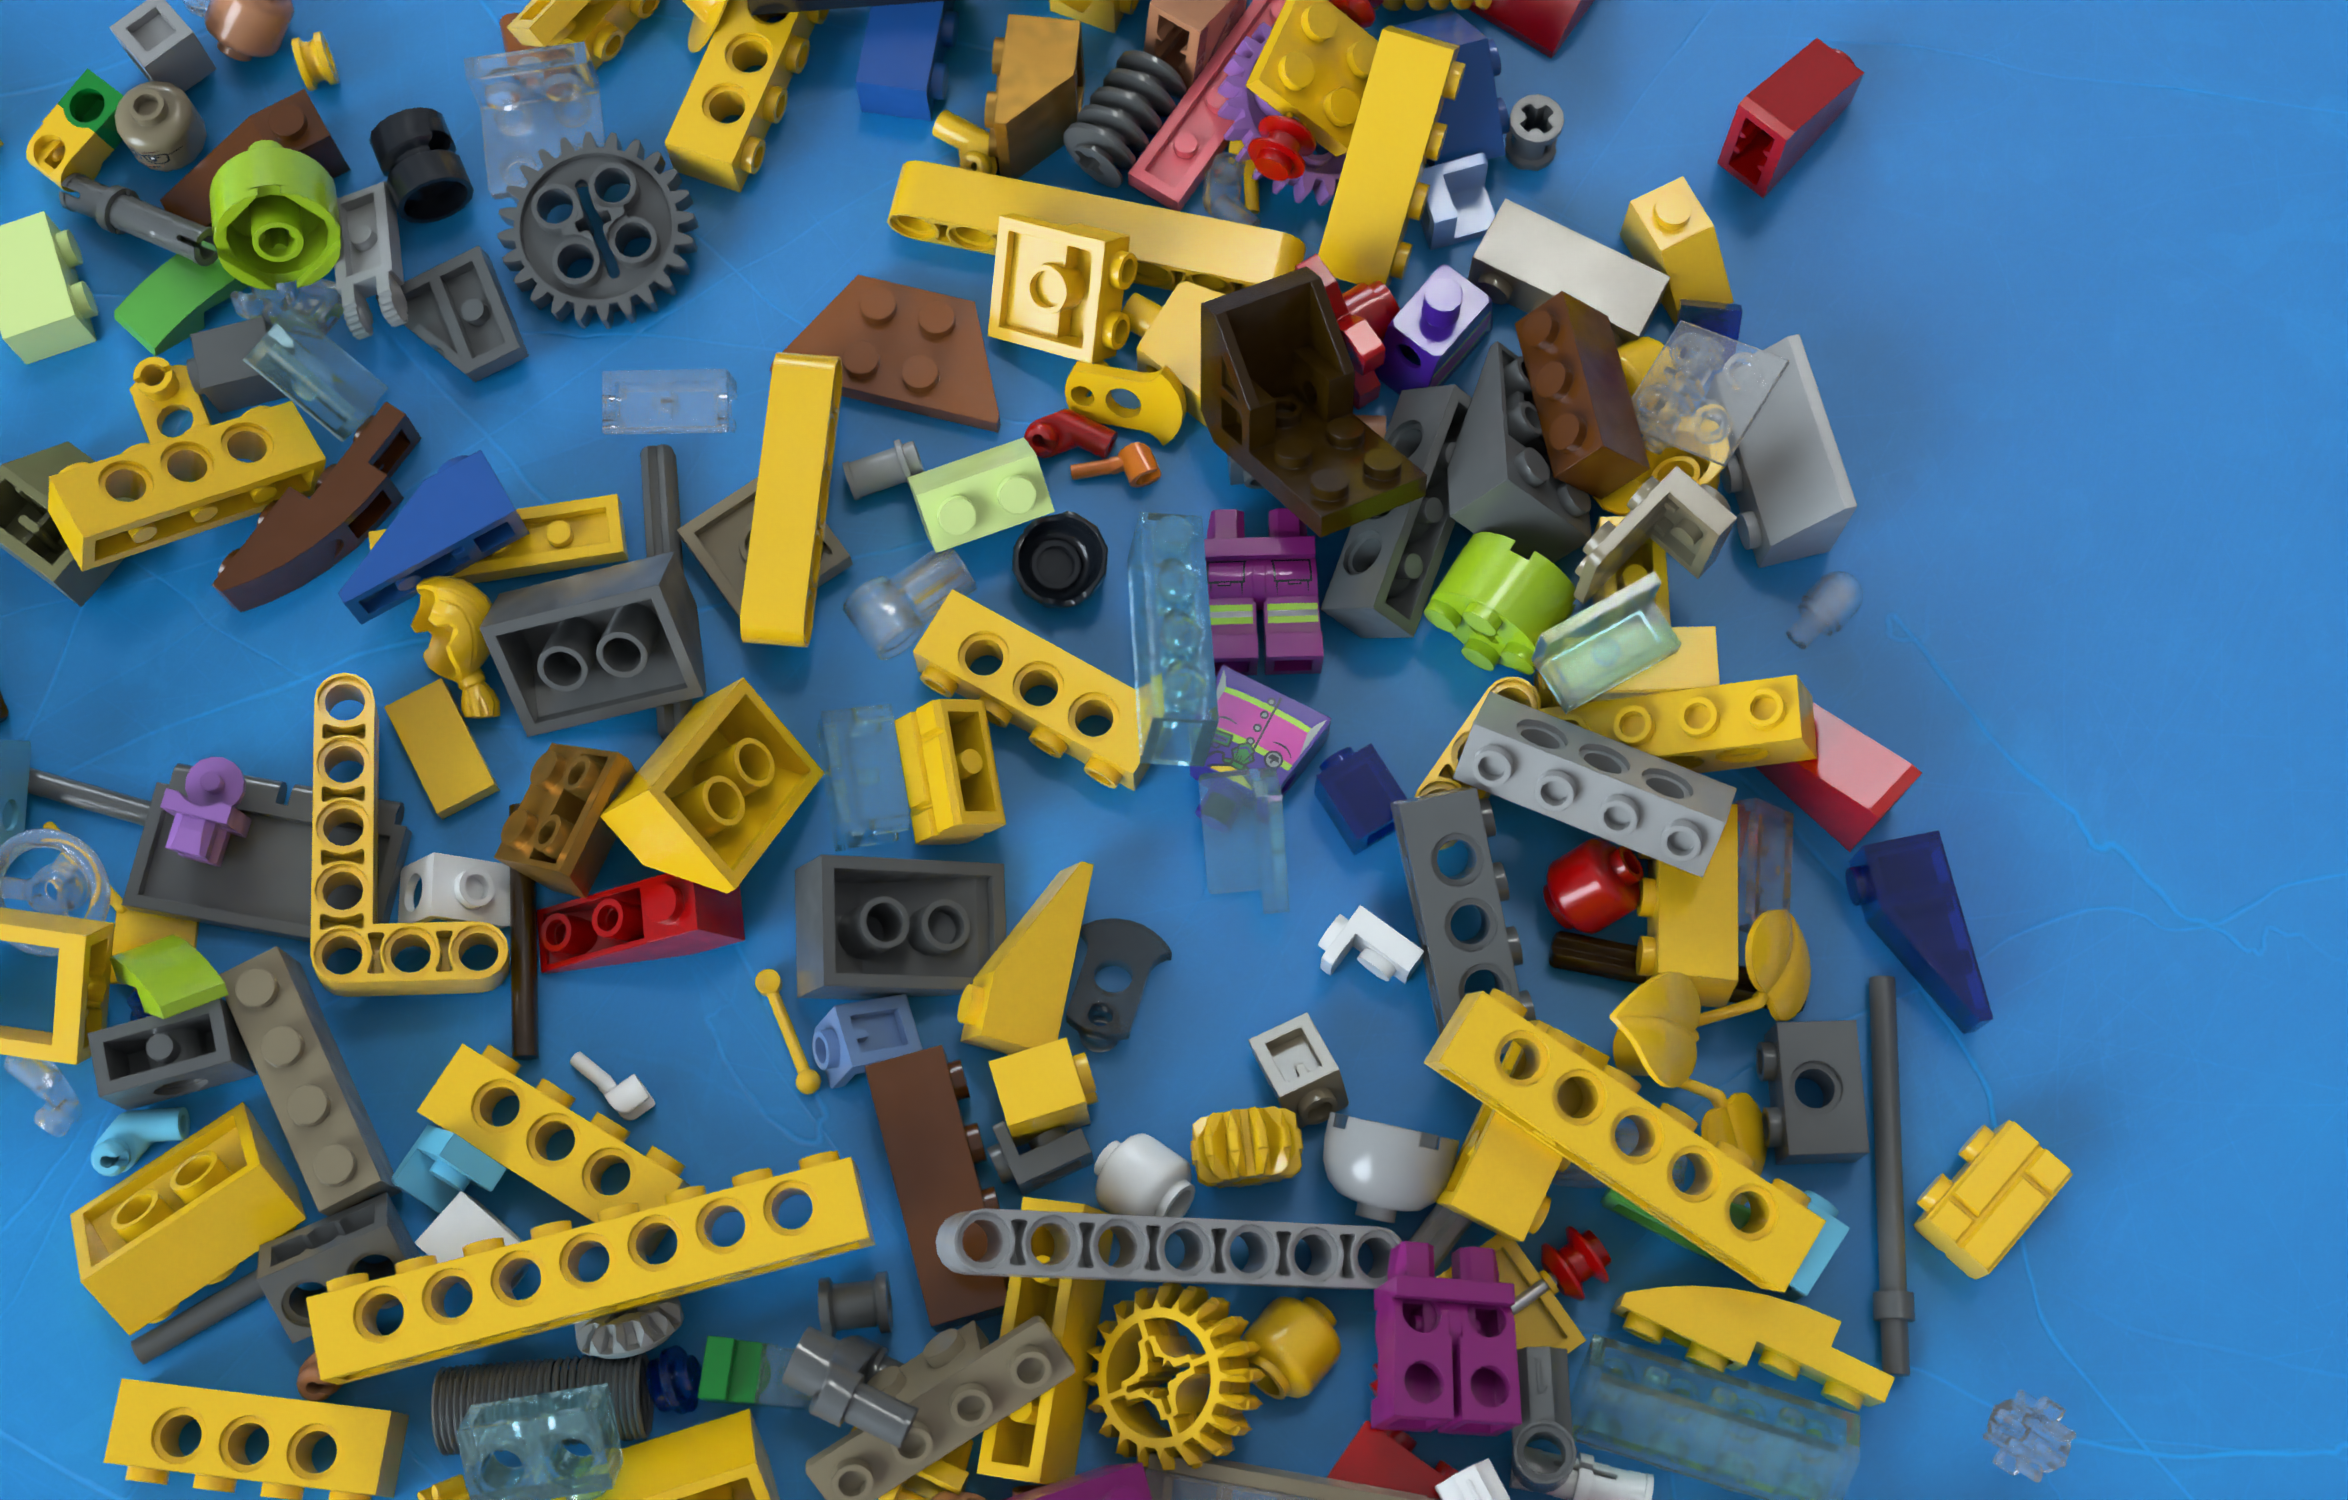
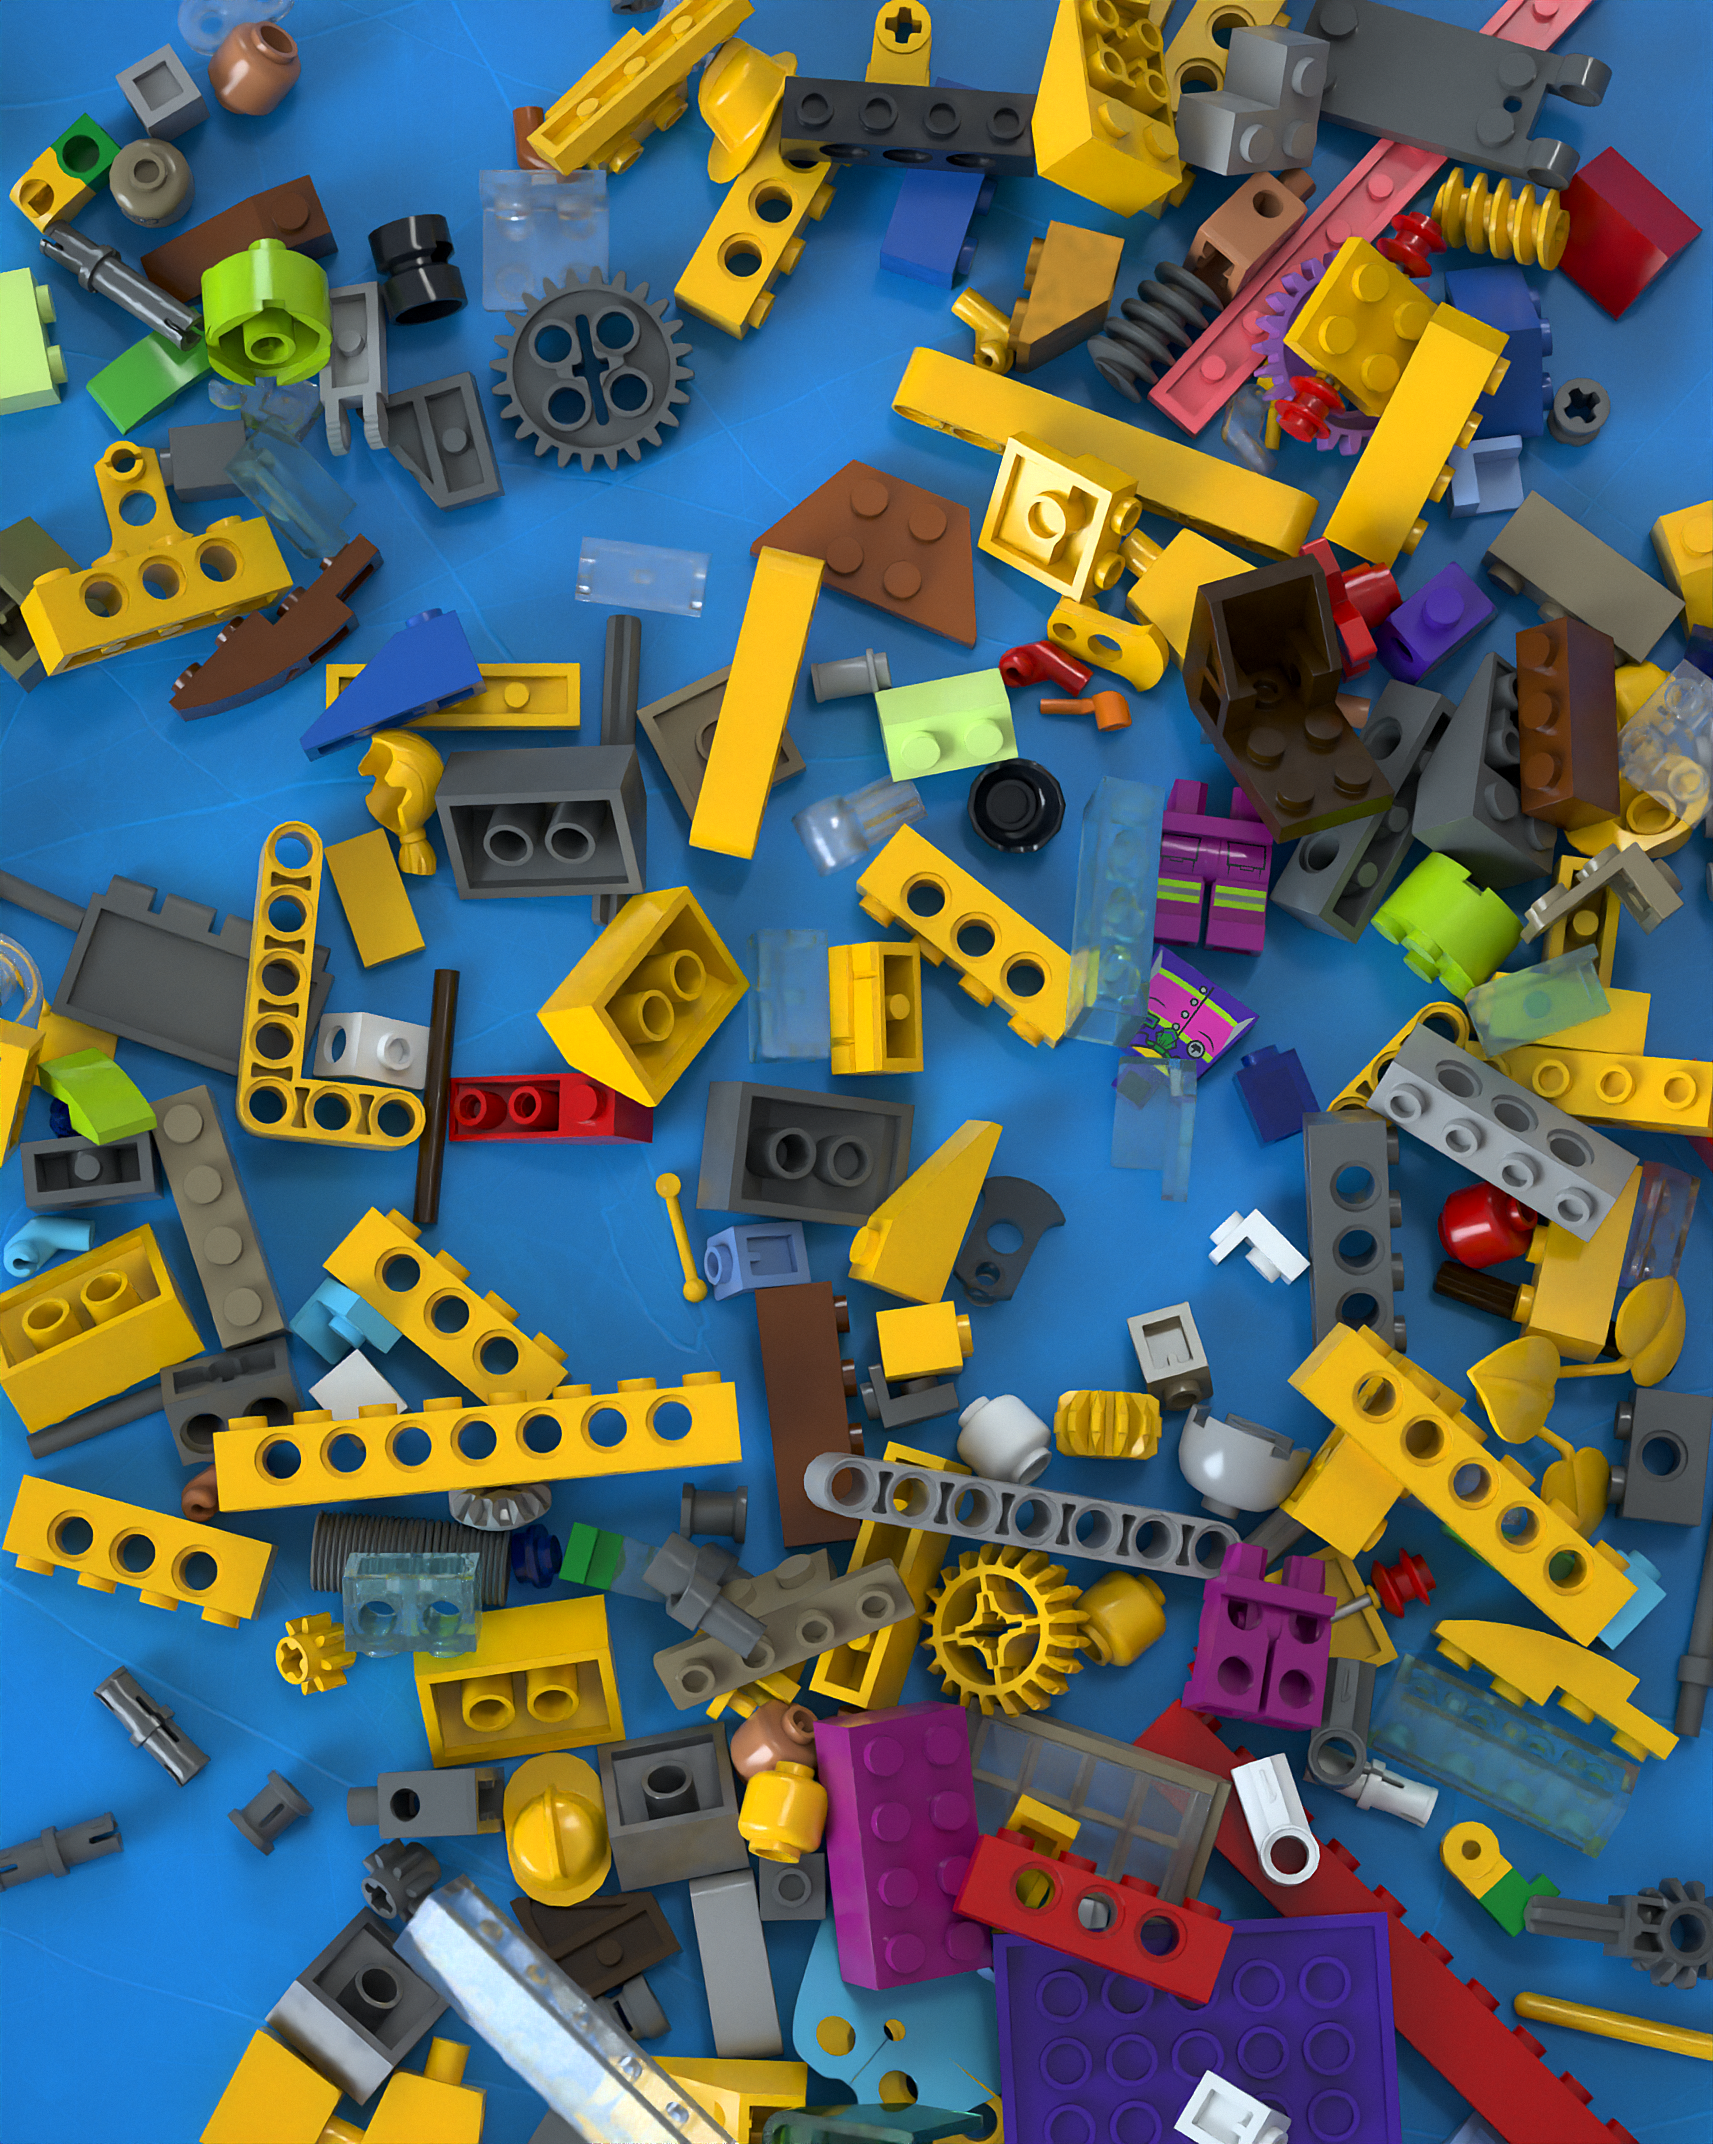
camera: 10 degrees right, 10 degrees up
(209, 813) = (157, 918): medium lavender hips -> none
(315, 61) = (316, 128): yellow bush -> none
(558, 826) = (495, 996): pearl gold slope -> none
(628, 1098) = (519, 1279): white hand -> none

